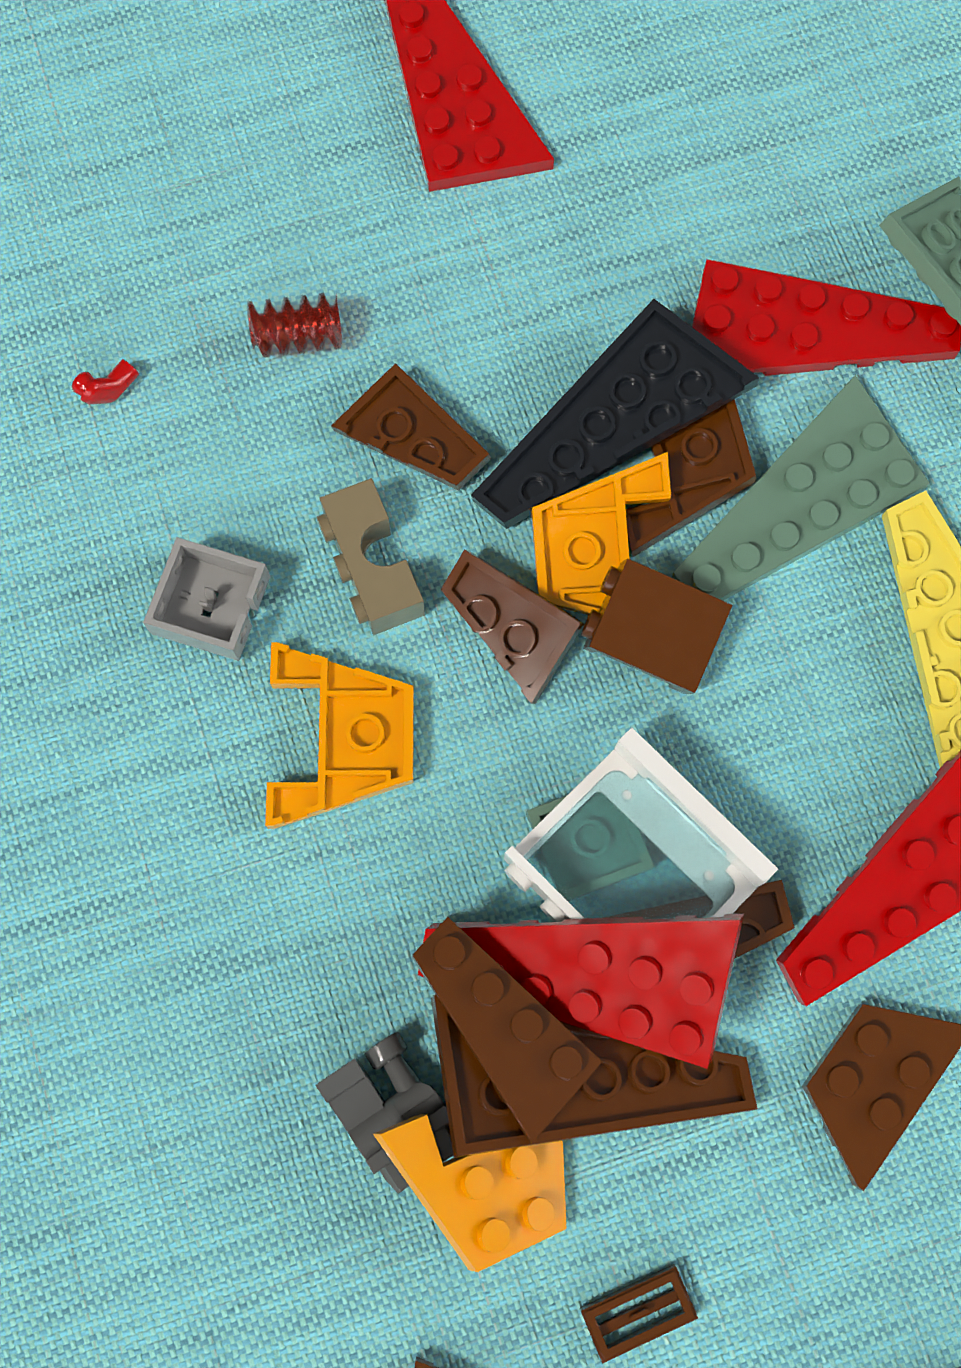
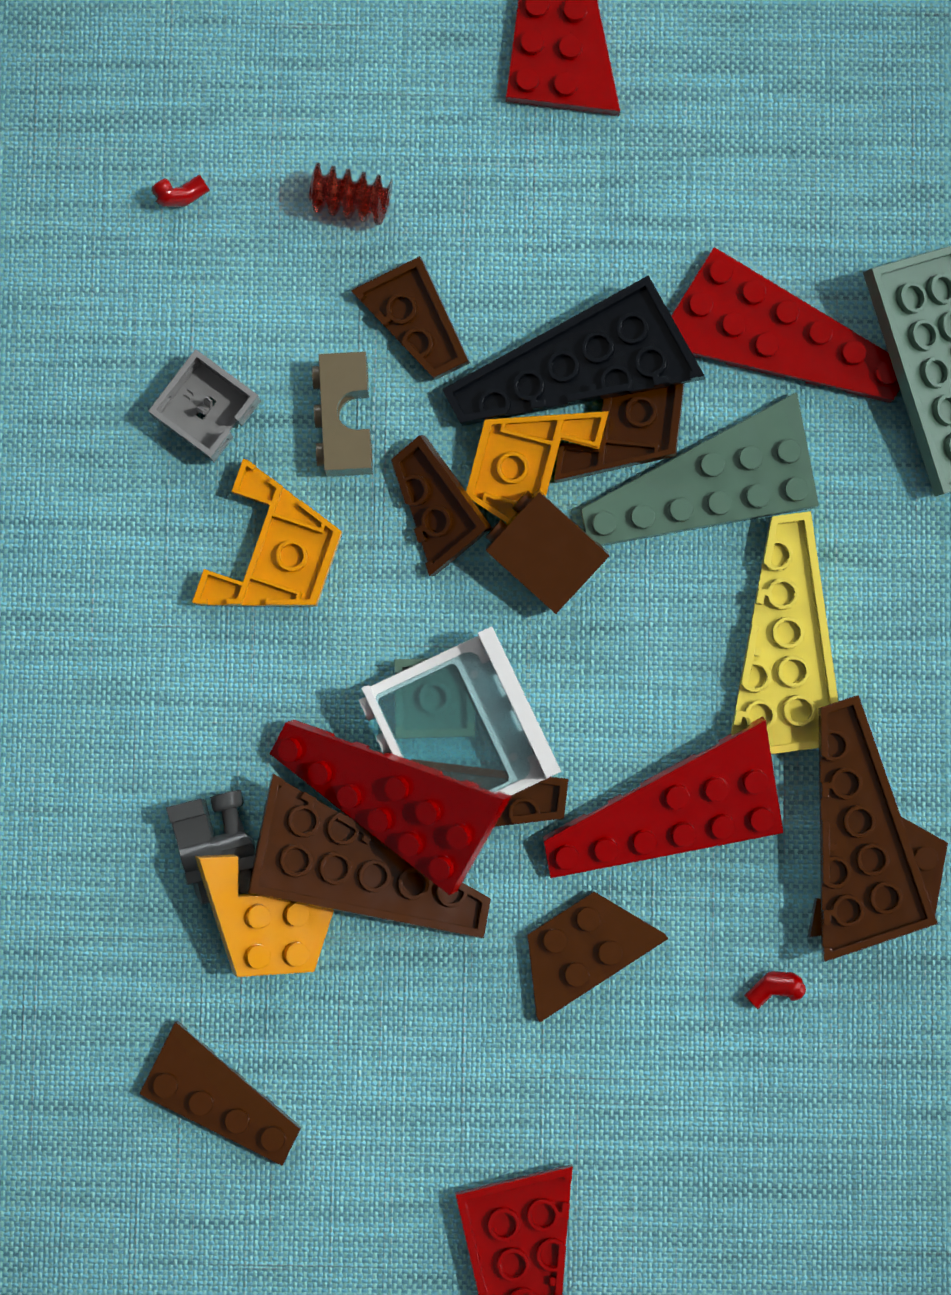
camera: 20 degrees right, 10 degrees up
(513, 1036) = (318, 822): reddish brown wing -> none
(647, 1333) = (311, 1049): reddish brown tile -> none

